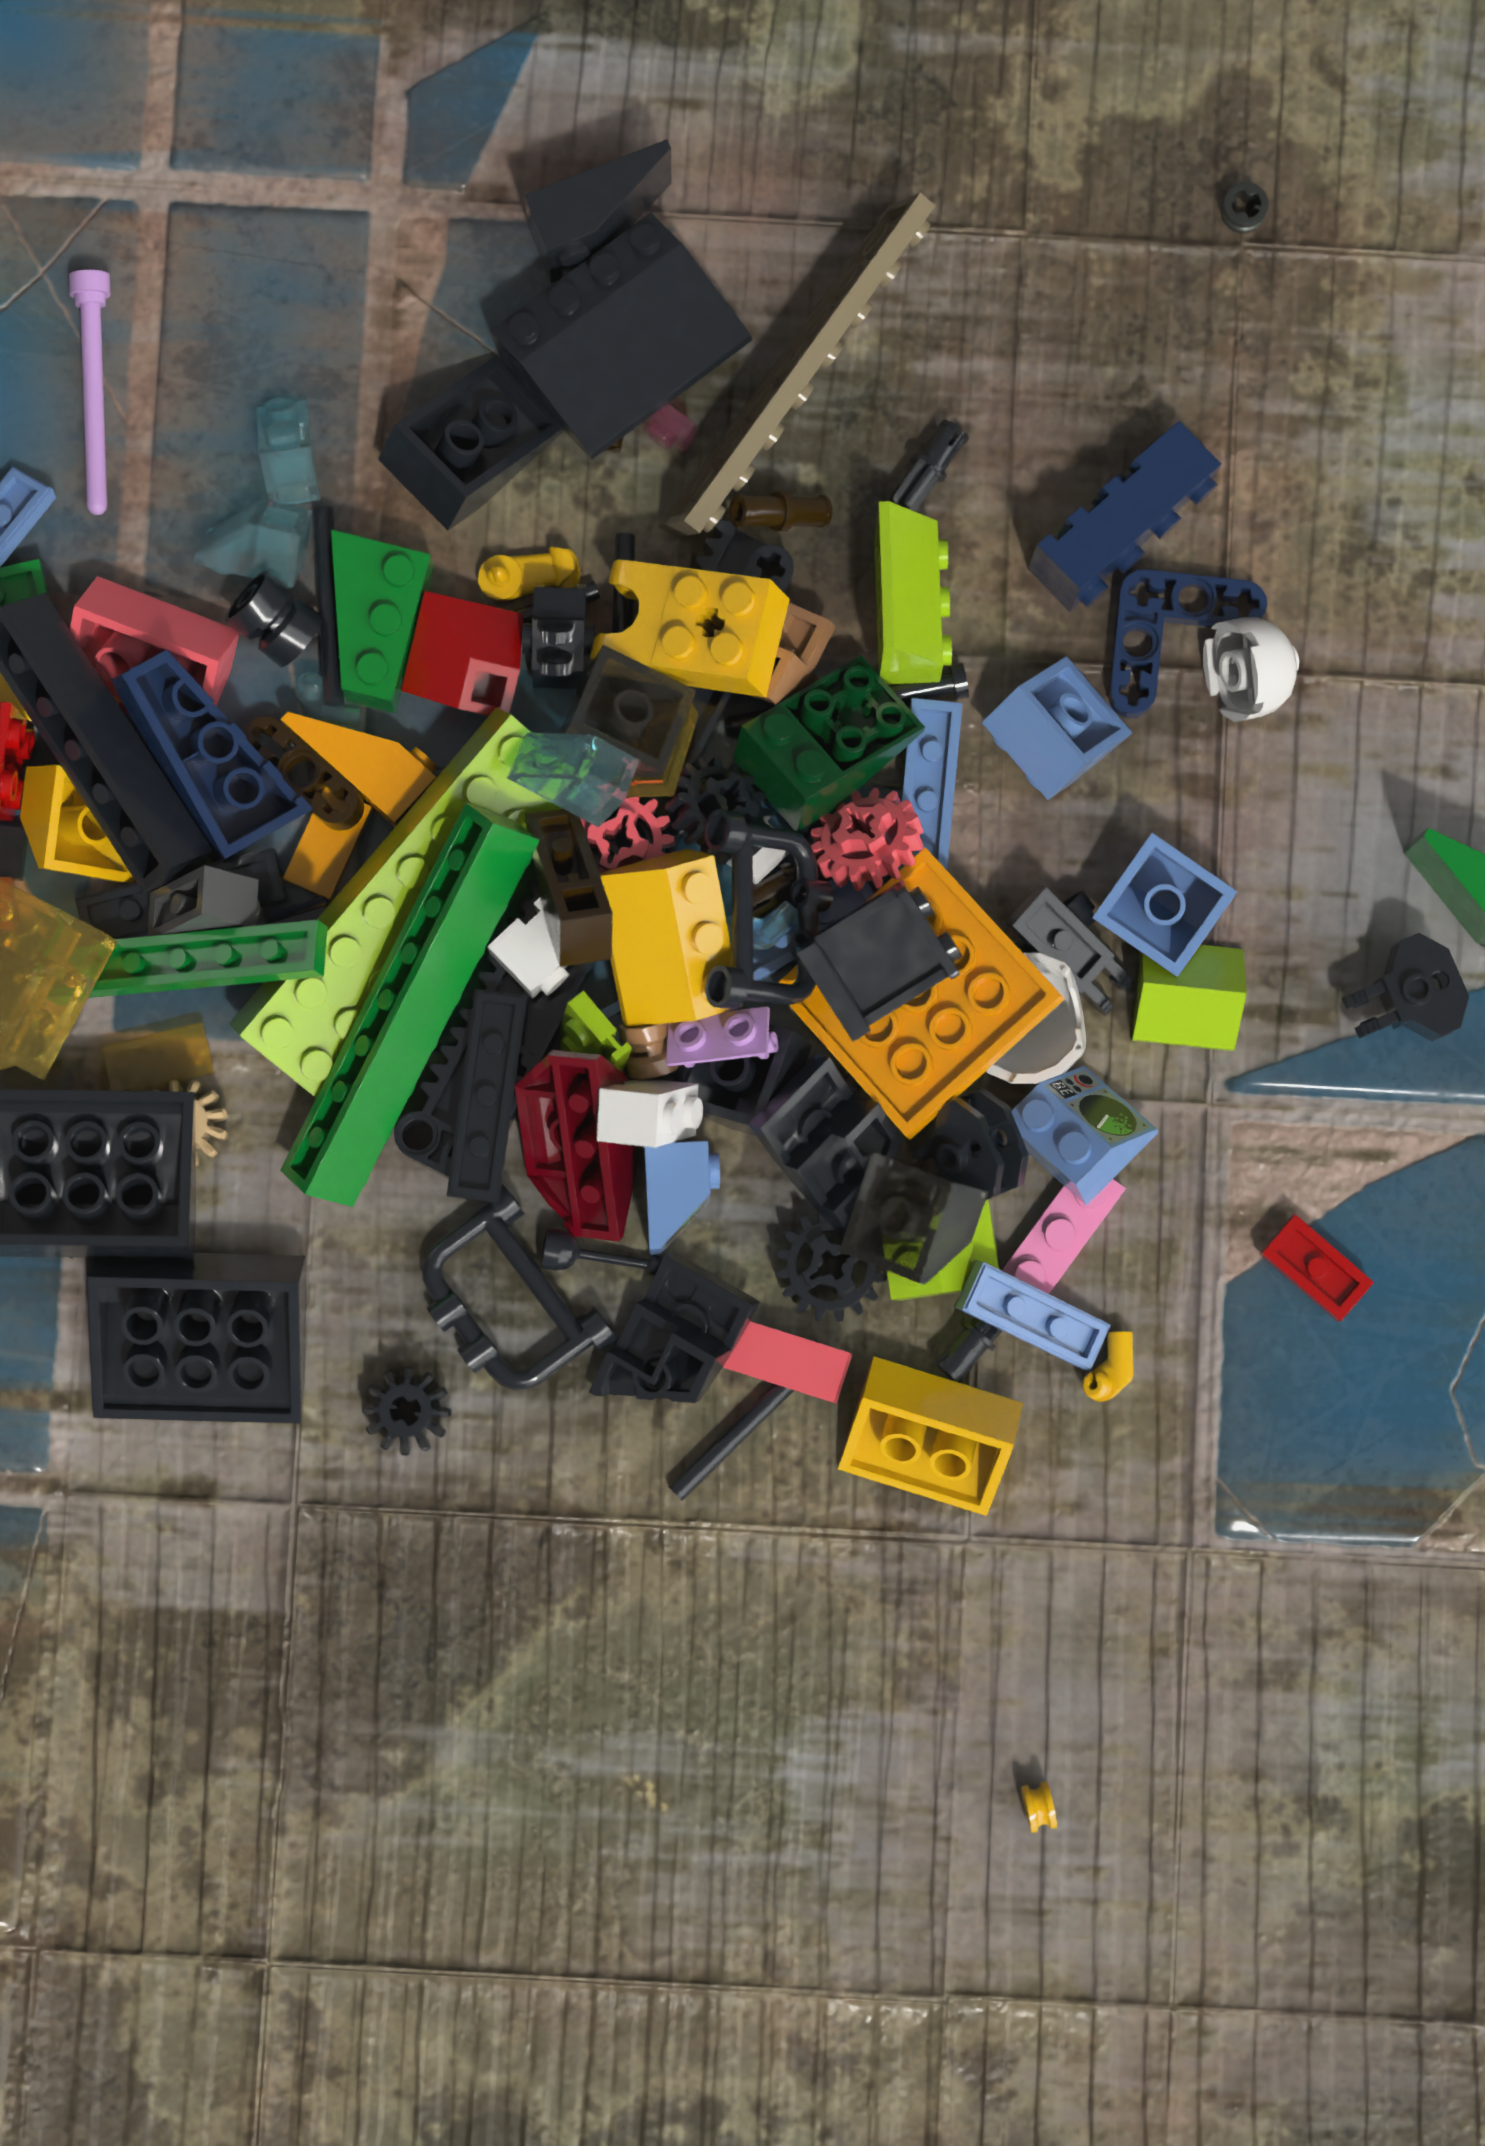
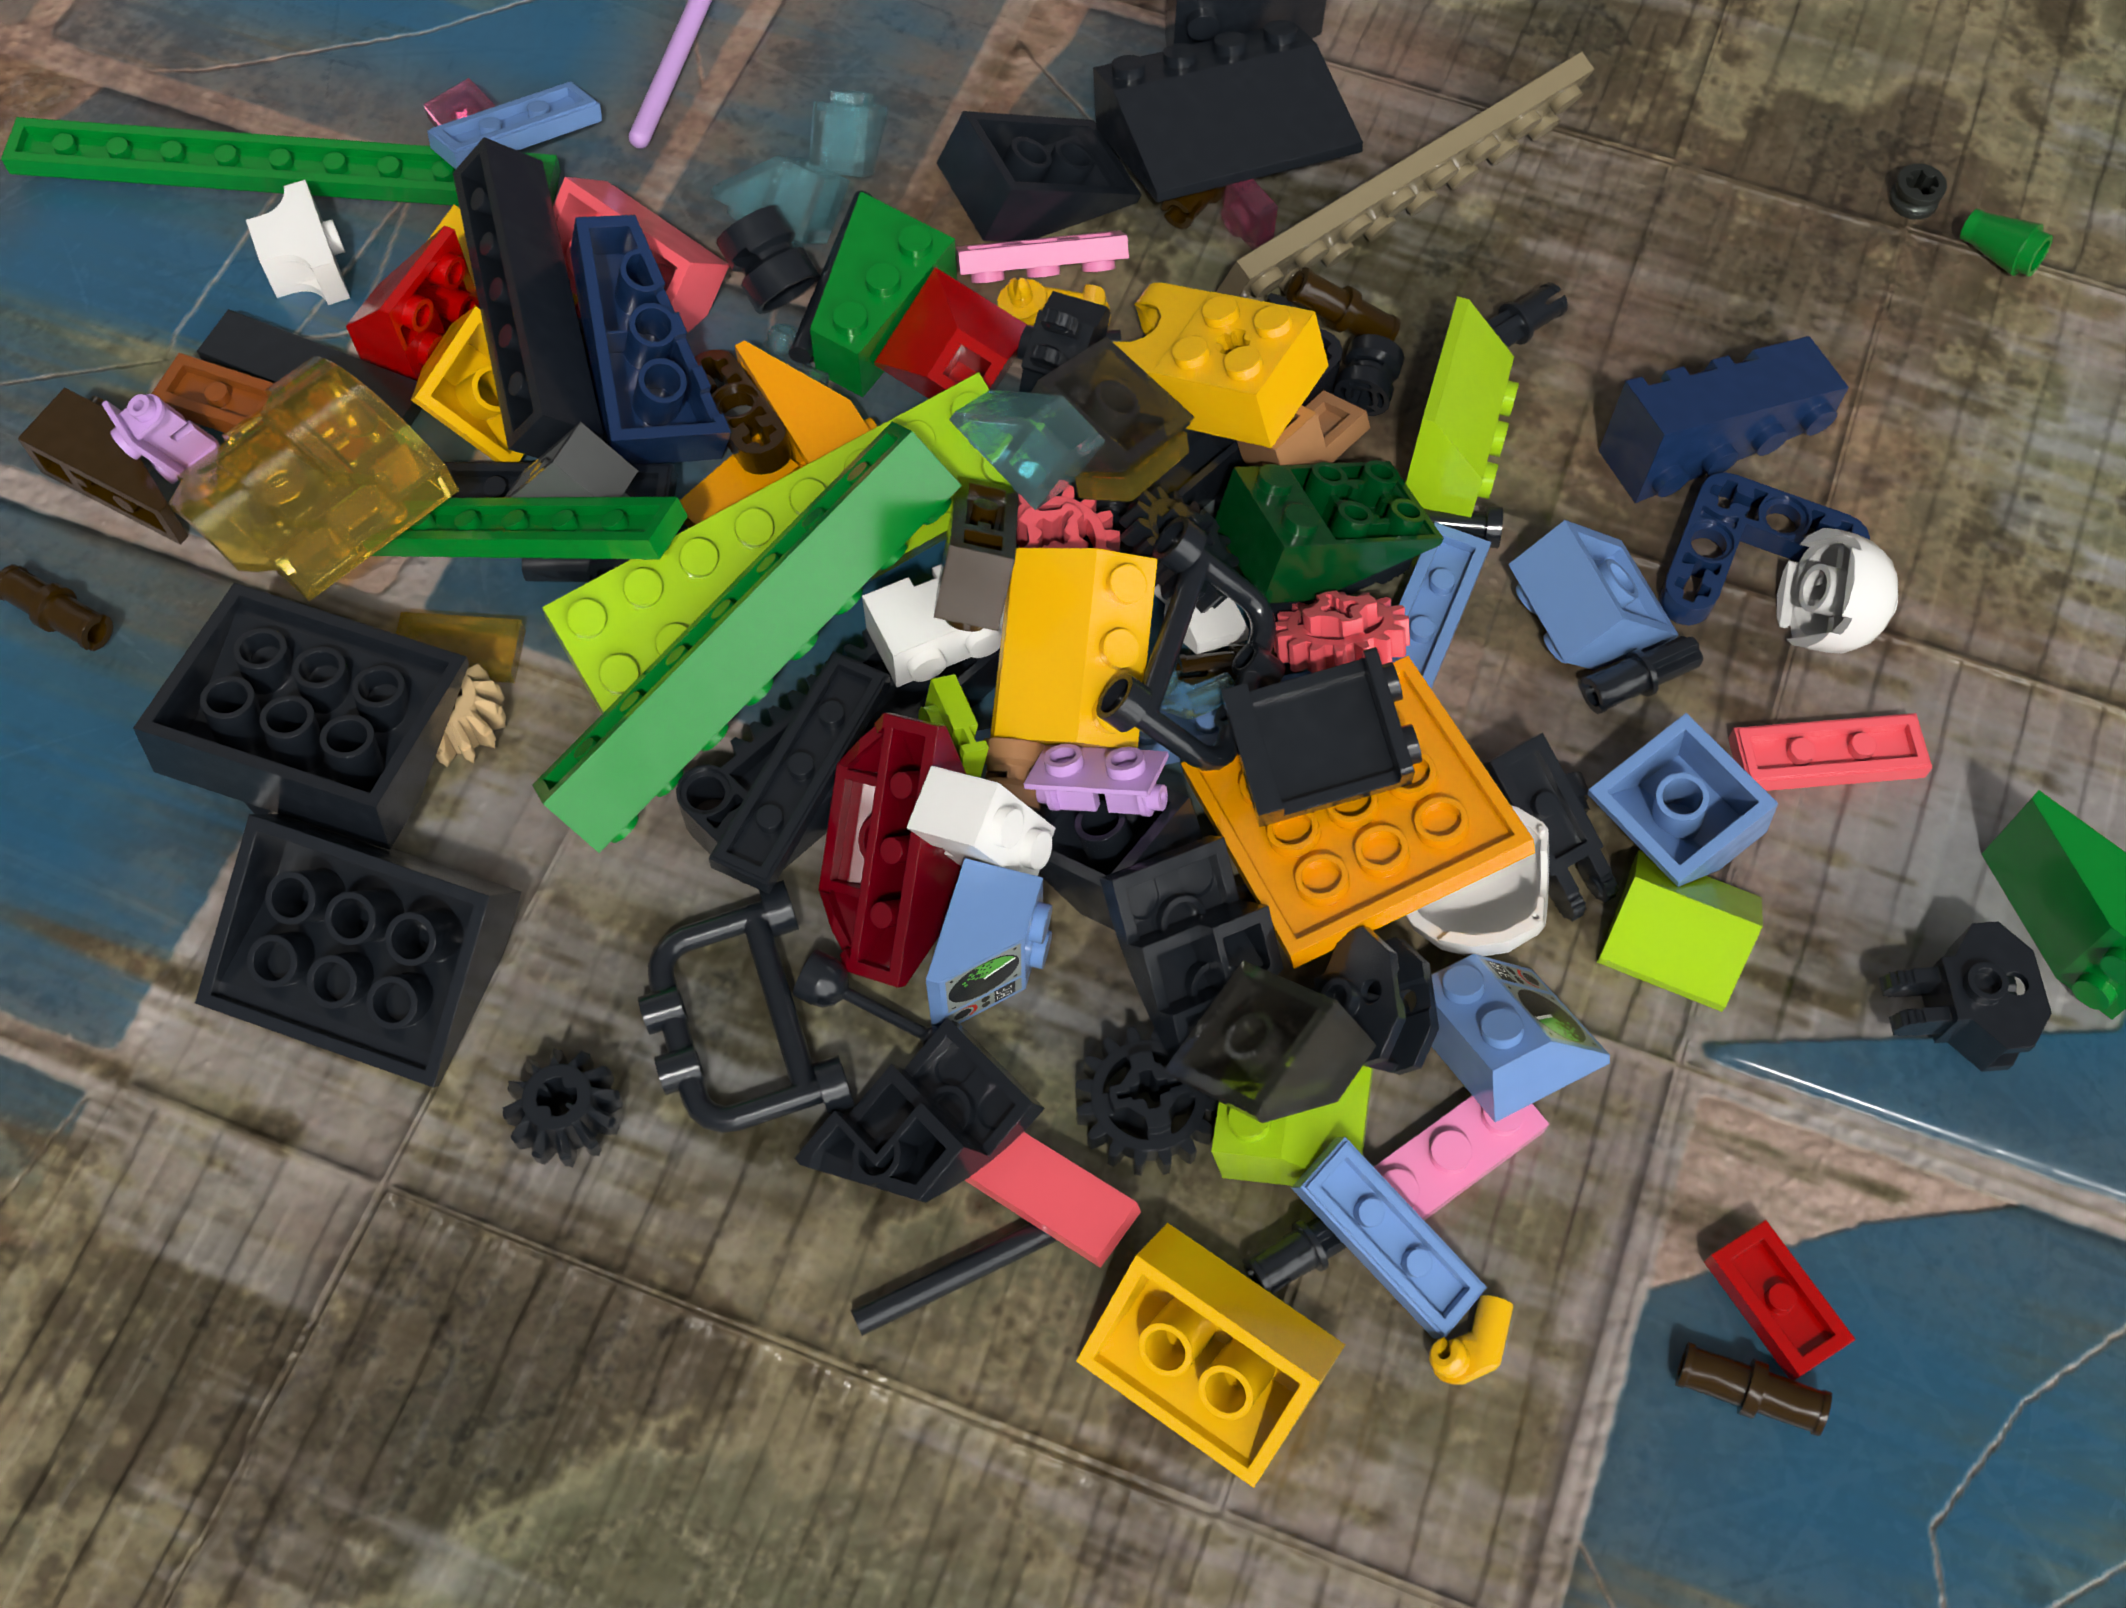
camera: 25 degrees right, 20 degrees down
(502, 526) = (1042, 255): none -> bright pink plate
(819, 565) = (1369, 374): none -> black wheel
(1110, 781) = (1641, 673): none -> black axle
(1271, 804) = (1832, 751): none -> coral tile
(1311, 1338) = (1754, 1389): none -> dark brown pin
(1330, 244) = (2008, 241): none -> green cone

